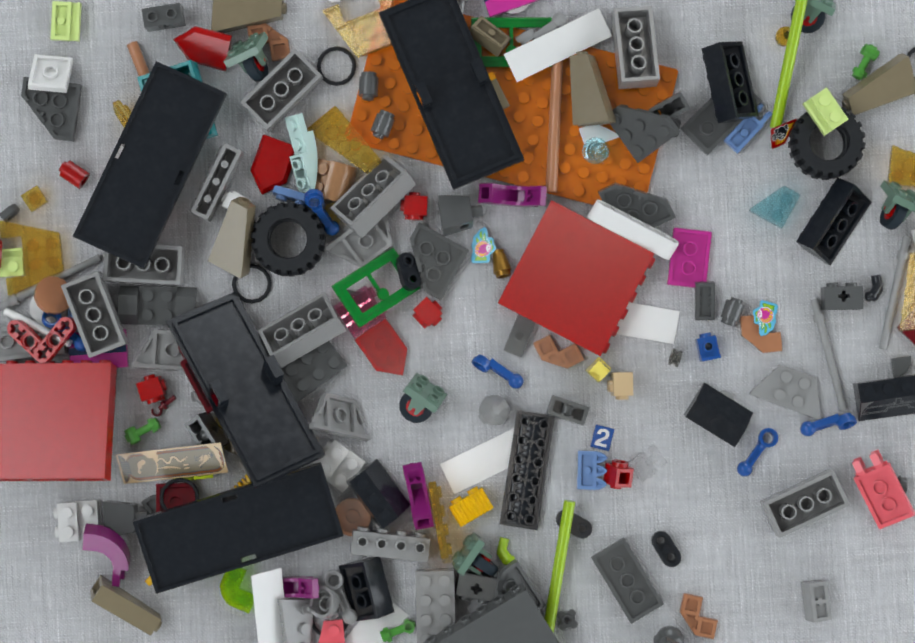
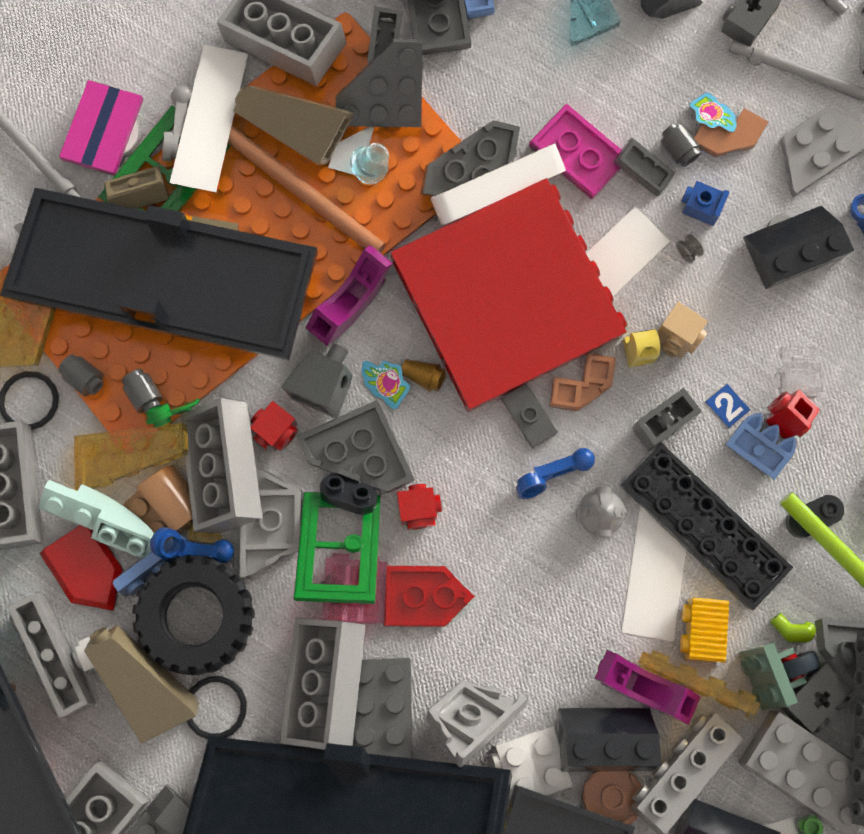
camera: 60 degrees left, 10 degrees down
(377, 145) = (161, 414): none -> green plate
(420, 399) = (523, 594): sand green plate -> none

